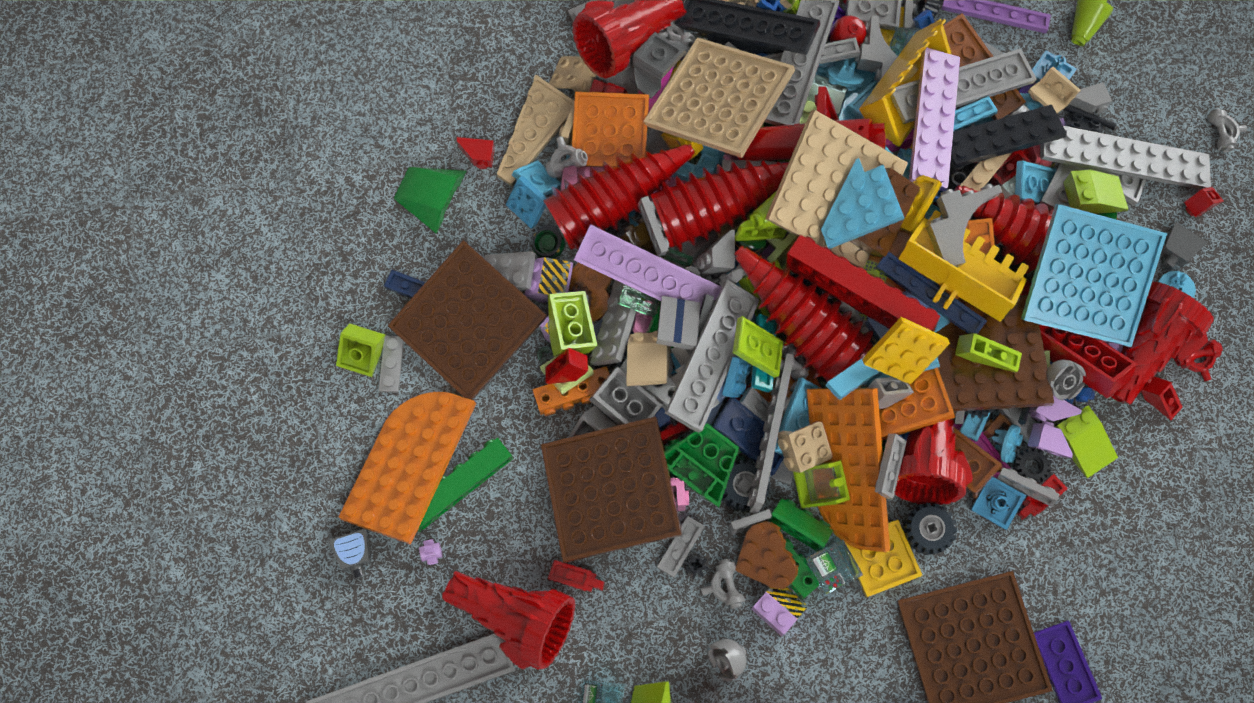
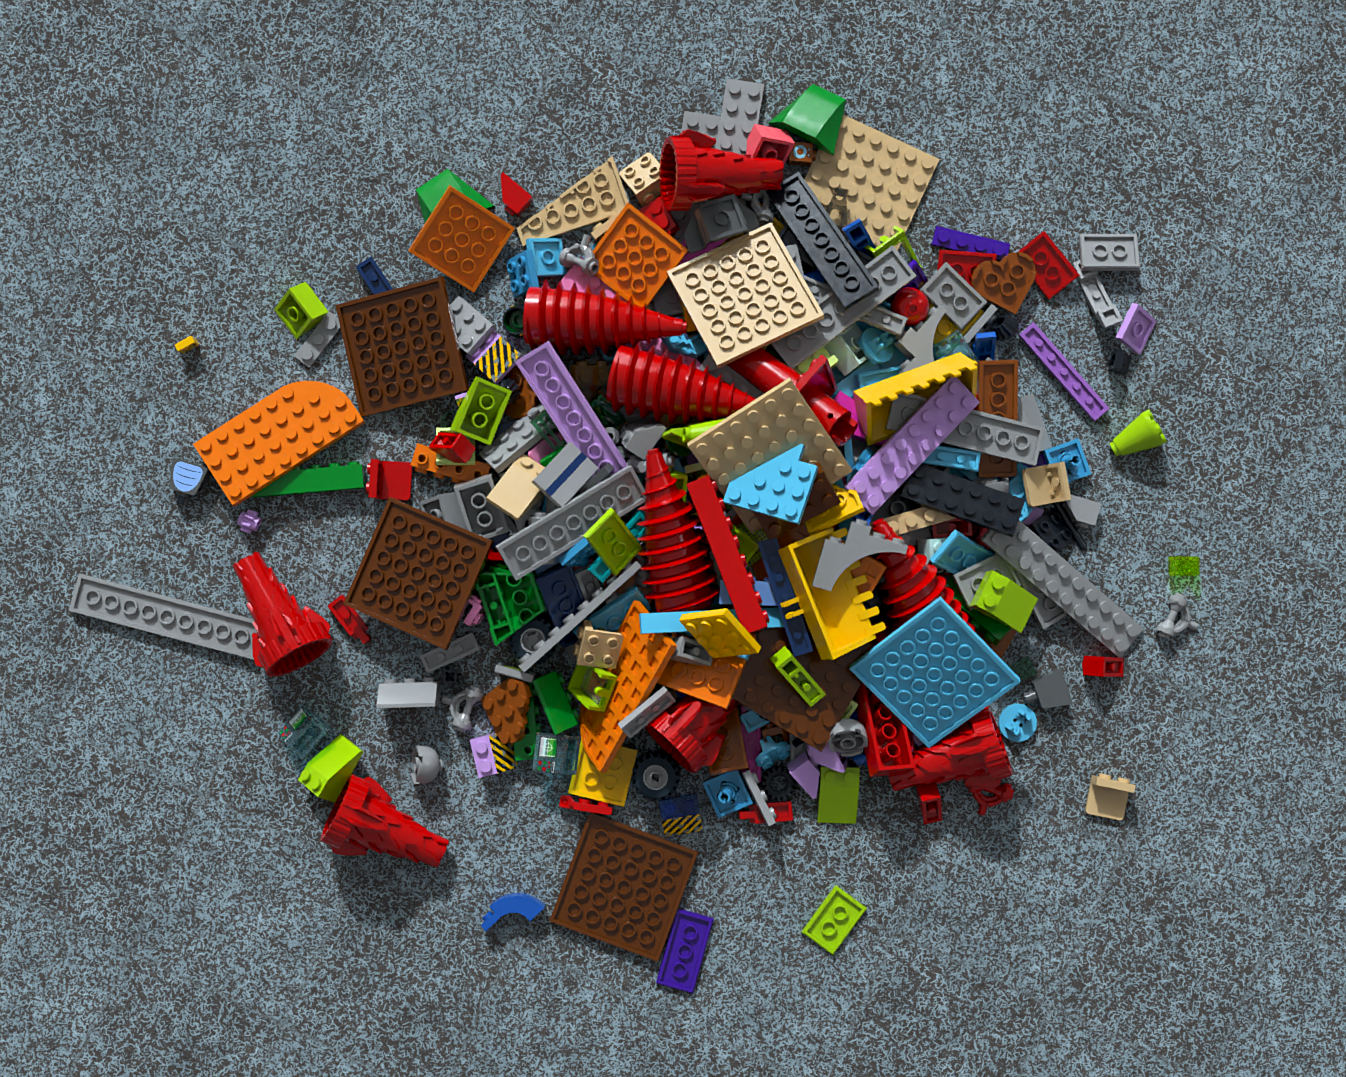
camera: 30 degrees right, 15 degrees up
(279, 440) = (186, 344): none -> yellow tile
(458, 205) = (461, 238): none -> orange plate
(528, 436) = (389, 480): none -> red bracket
(653, 226) = (602, 378): light grey plate -> none
(671, 604) = (408, 693): none -> light grey slope
(888, 598) = (584, 805): none -> red hinge
(974, 549) = (680, 814): none -> slope
(1165, 550) = (834, 919): none -> lime tile
(1199, 89) = (1183, 566): none -> clear neon green bracket

